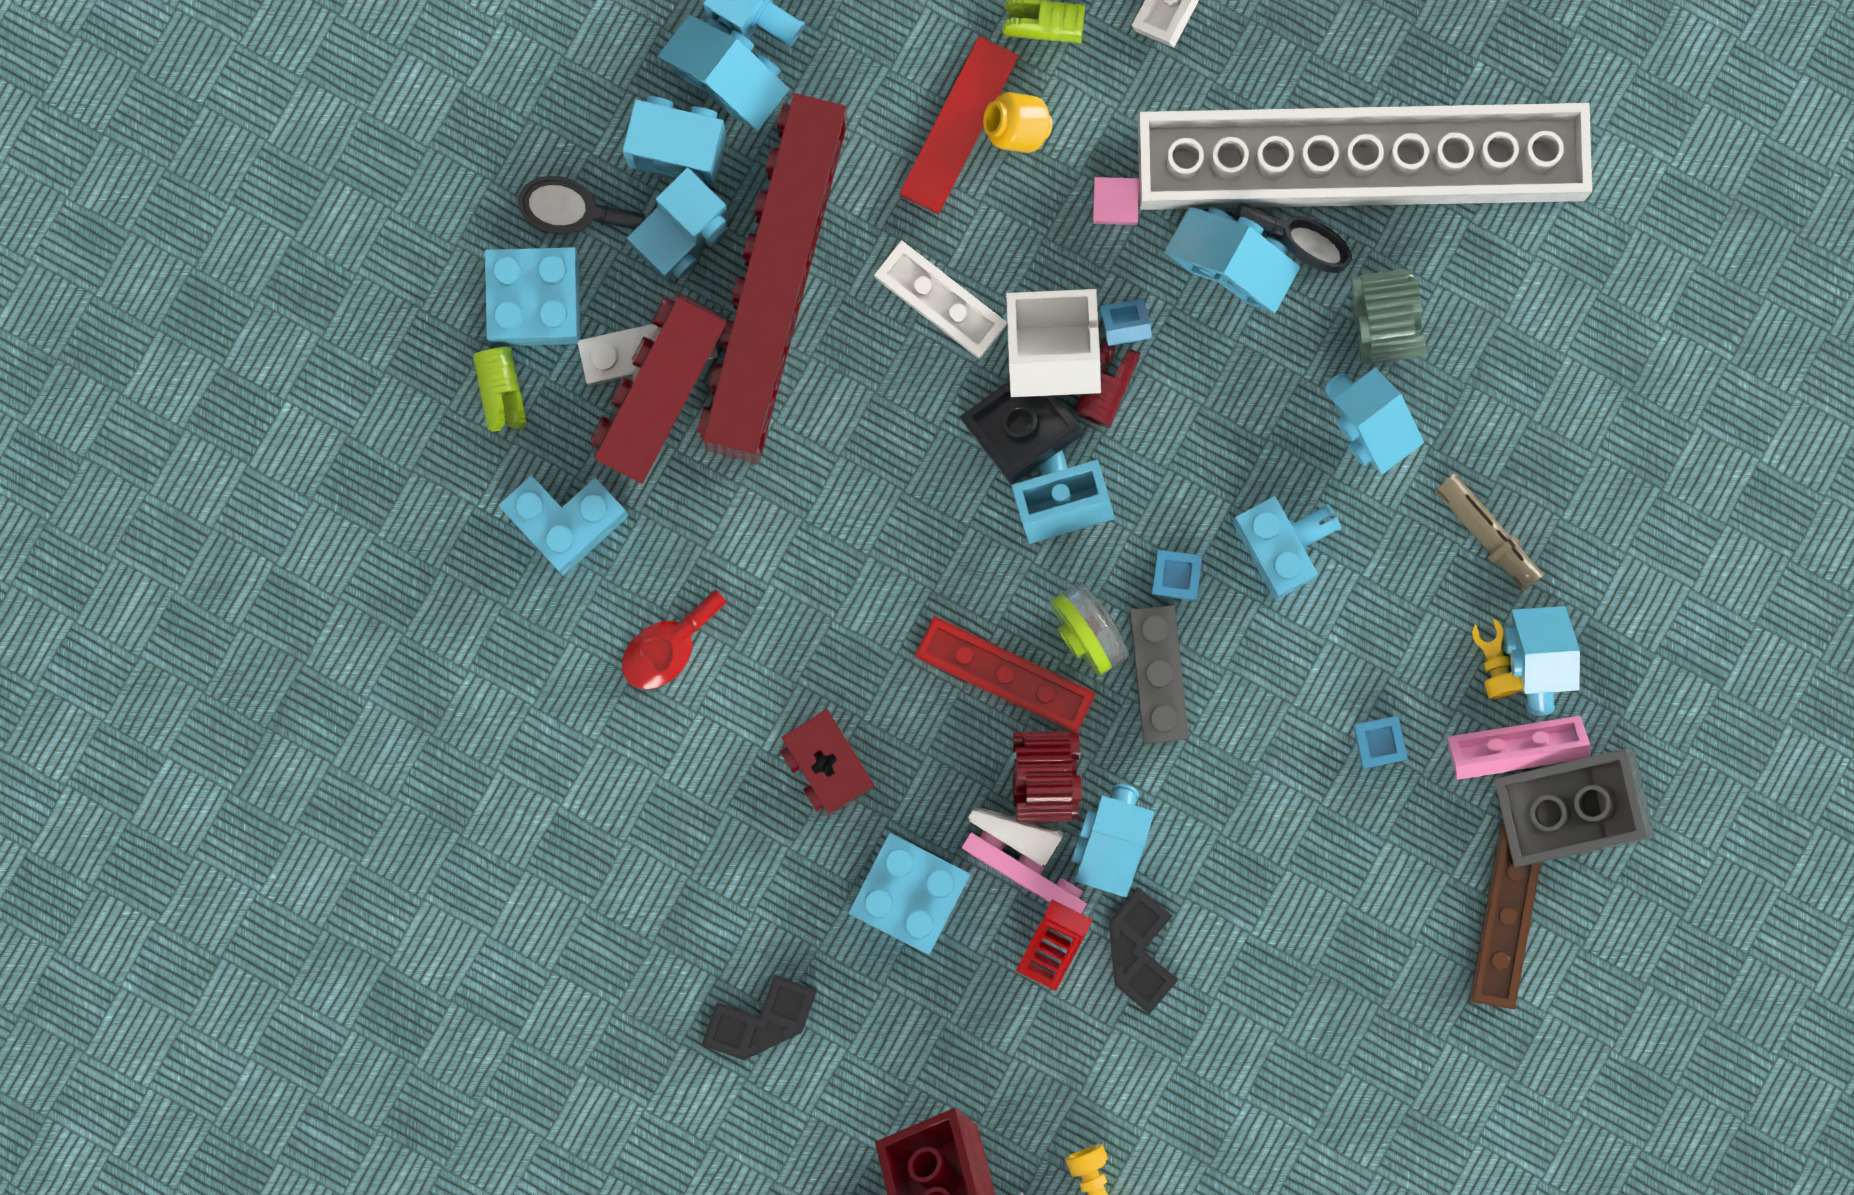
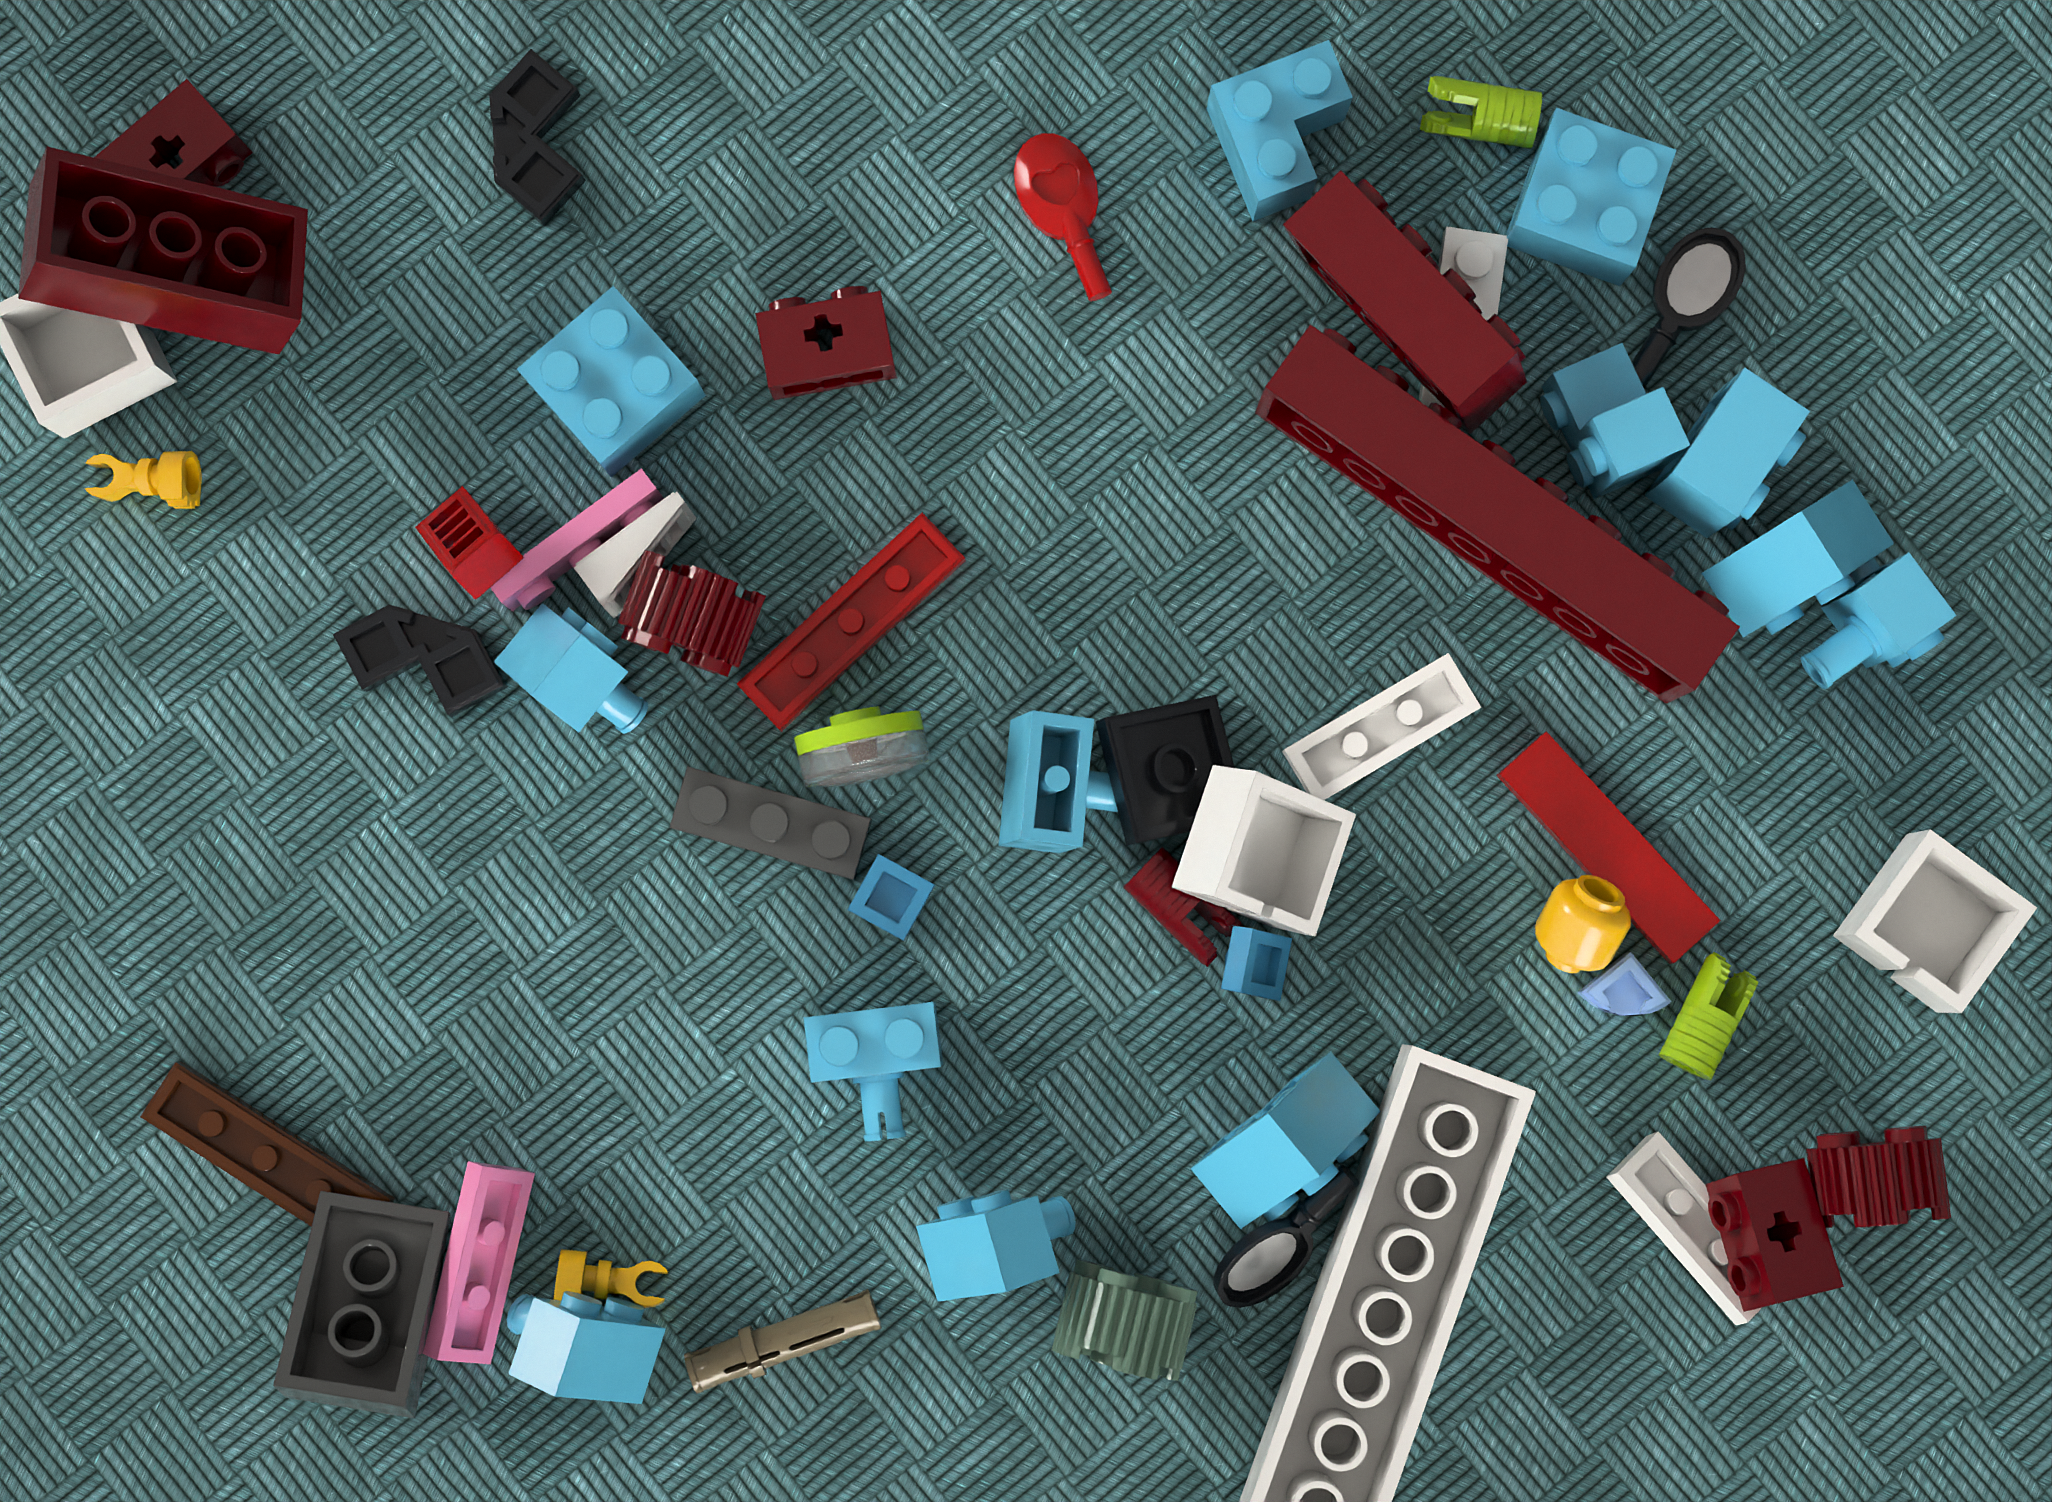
camera: 110 degrees right, 0 degrees up
(1047, 80) = (1625, 989): none -> light blue tile
(1115, 201) = (1426, 1016): bright pink tile -> none
(1380, 742) = (561, 1079): dark azure plate -> none

